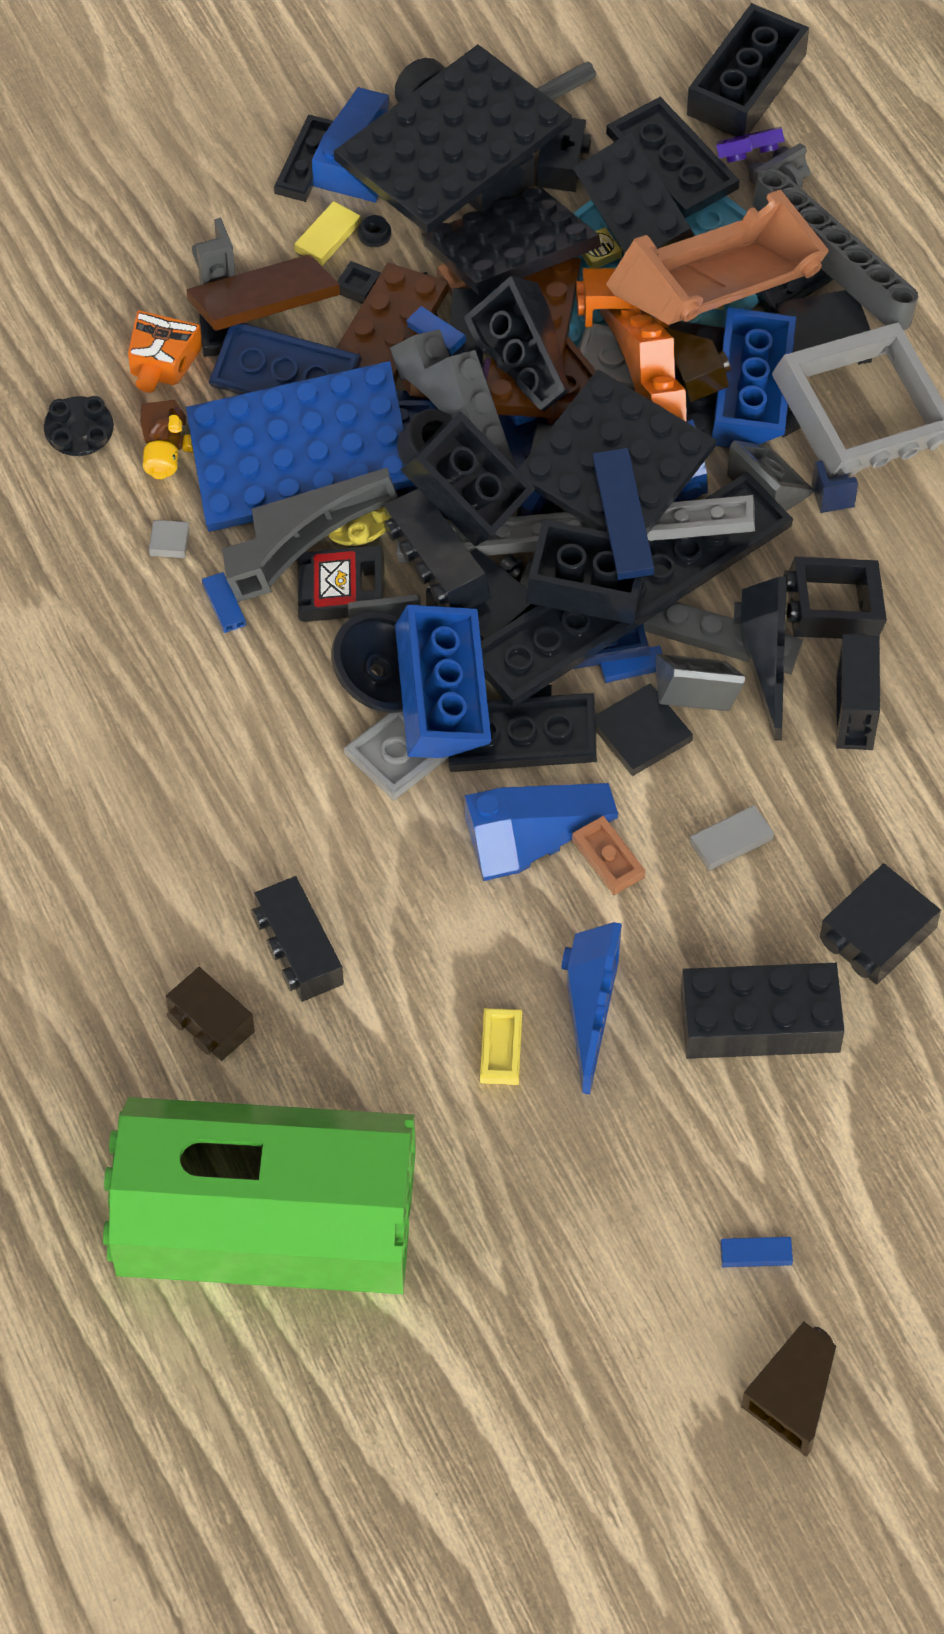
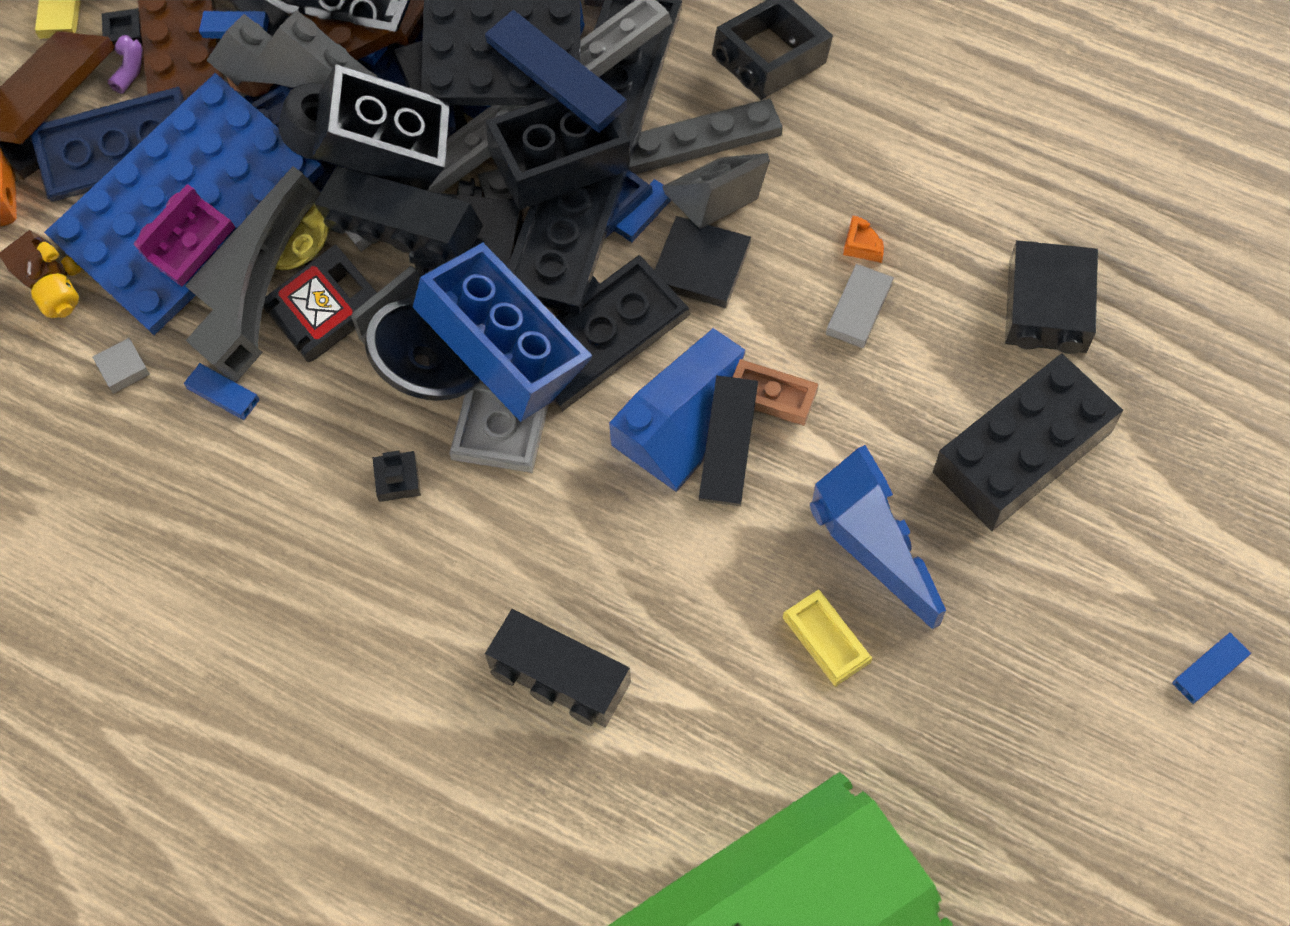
camera: 35 degrees left, 5 degrees up
(209, 1014) = (533, 808): dark brown brick -> none
(274, 470) = (183, 235): none -> magenta bracket
(296, 739) = (396, 475): none -> black tile
(343, 315) = (130, 65): none -> medium lavender arm
(545, 867) = (728, 441): none -> black tile
(763, 637) = (746, 107): black wedge -> none
(778, 793) = (863, 241): none -> orange tile
(858, 691) = (864, 108): black window -> none

